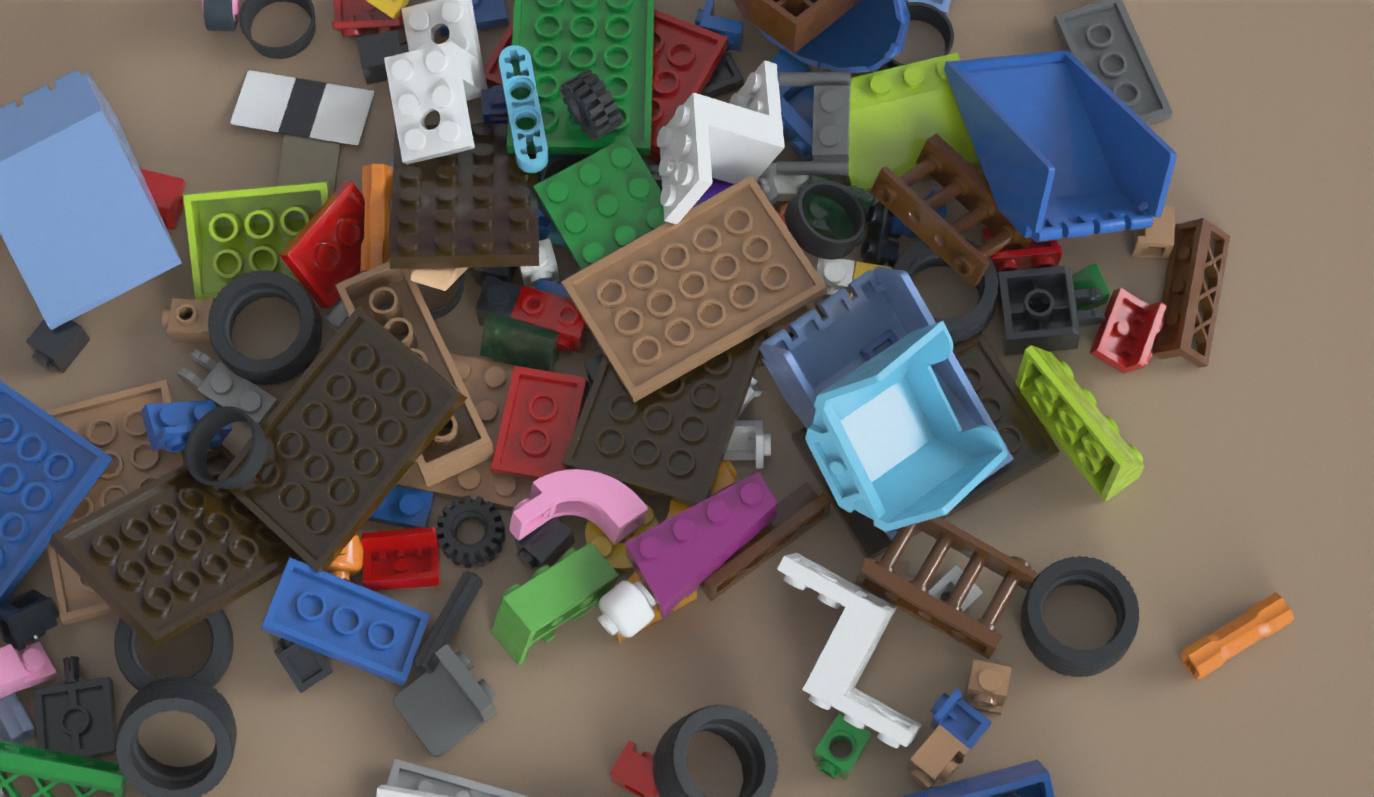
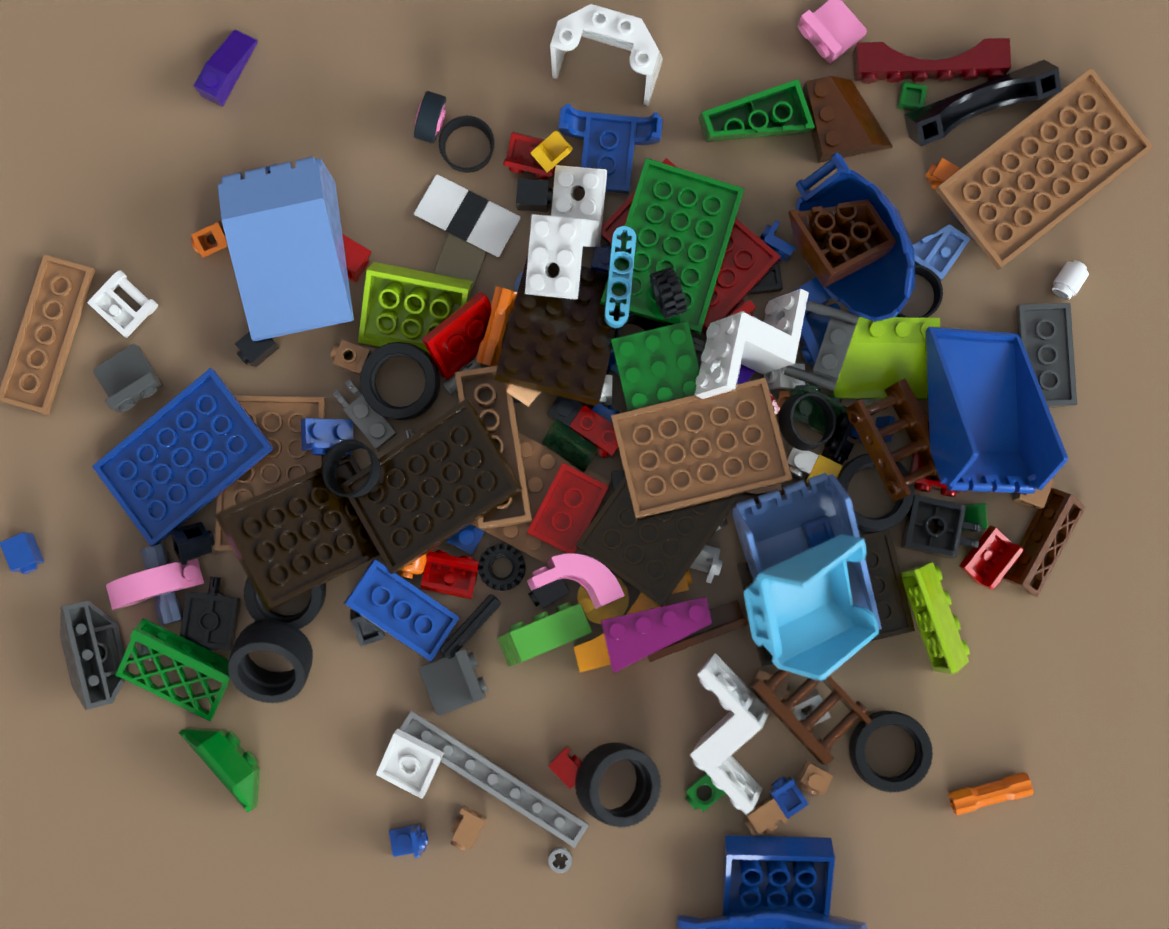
camera: 15 degrees right, 15 degrees up
(626, 609) = (589, 662): white head -> none

